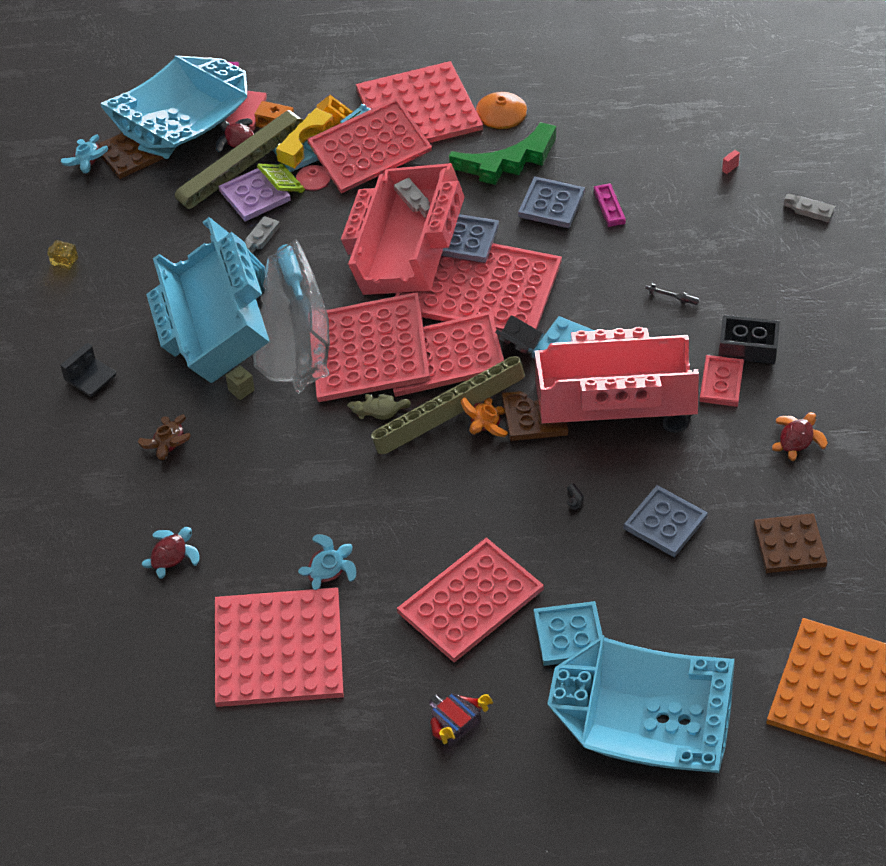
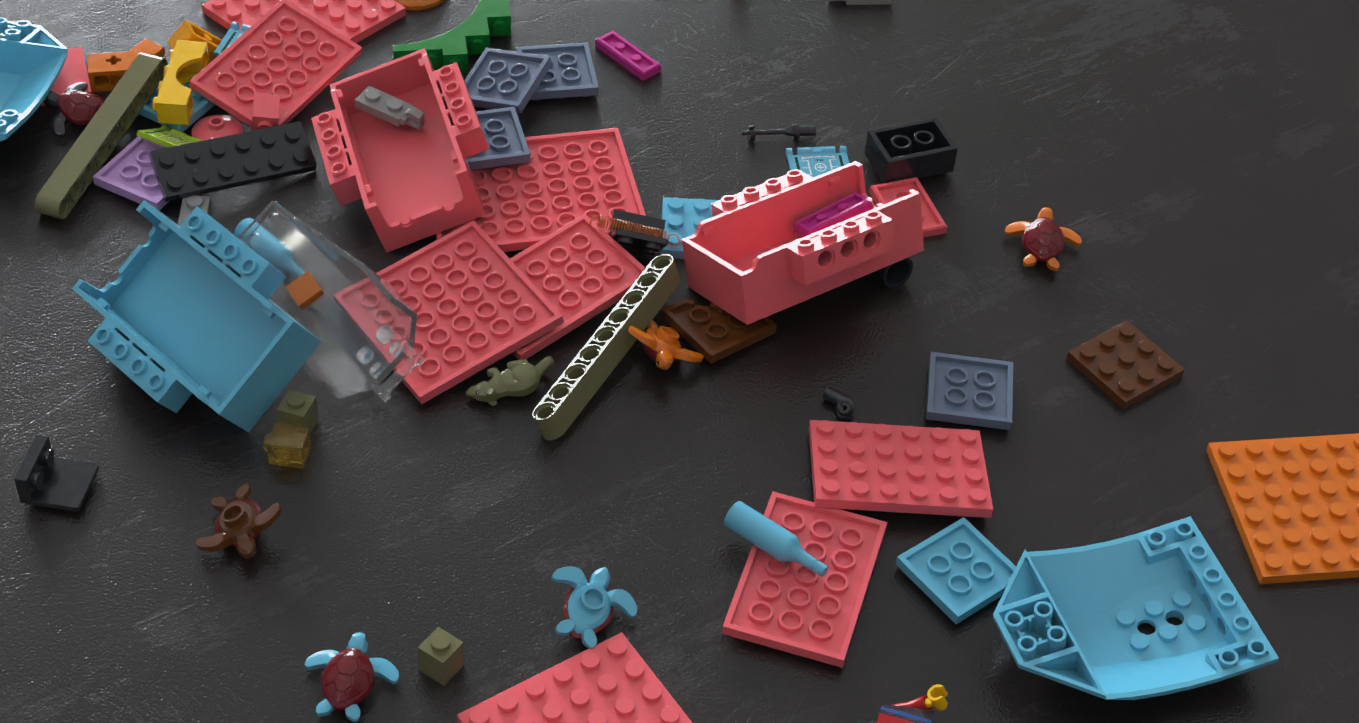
camera: 35 degrees left, 5 degrees down
(224, 400) = (288, 445): none -> clear yellow brick
(226, 559) = (441, 656): none -> olive brick
(291, 304) = (304, 290): none -> orange tile
(301, 202) = (232, 161): none -> black plate
(303, 108) = (149, 47): none -> orange tile
(340, 176) = (265, 111): none -> coral brick
(458, 564) = (770, 537): none -> medium azure piece
(508, 198) = (506, 78): none -> sand blue plate
(514, 332) = (601, 220): none -> orange piece
(578, 554) = (899, 469): none -> coral plate
(657, 366) = (832, 214): none -> dark pink tile
(684, 324) = (817, 160): none -> medium azure piece

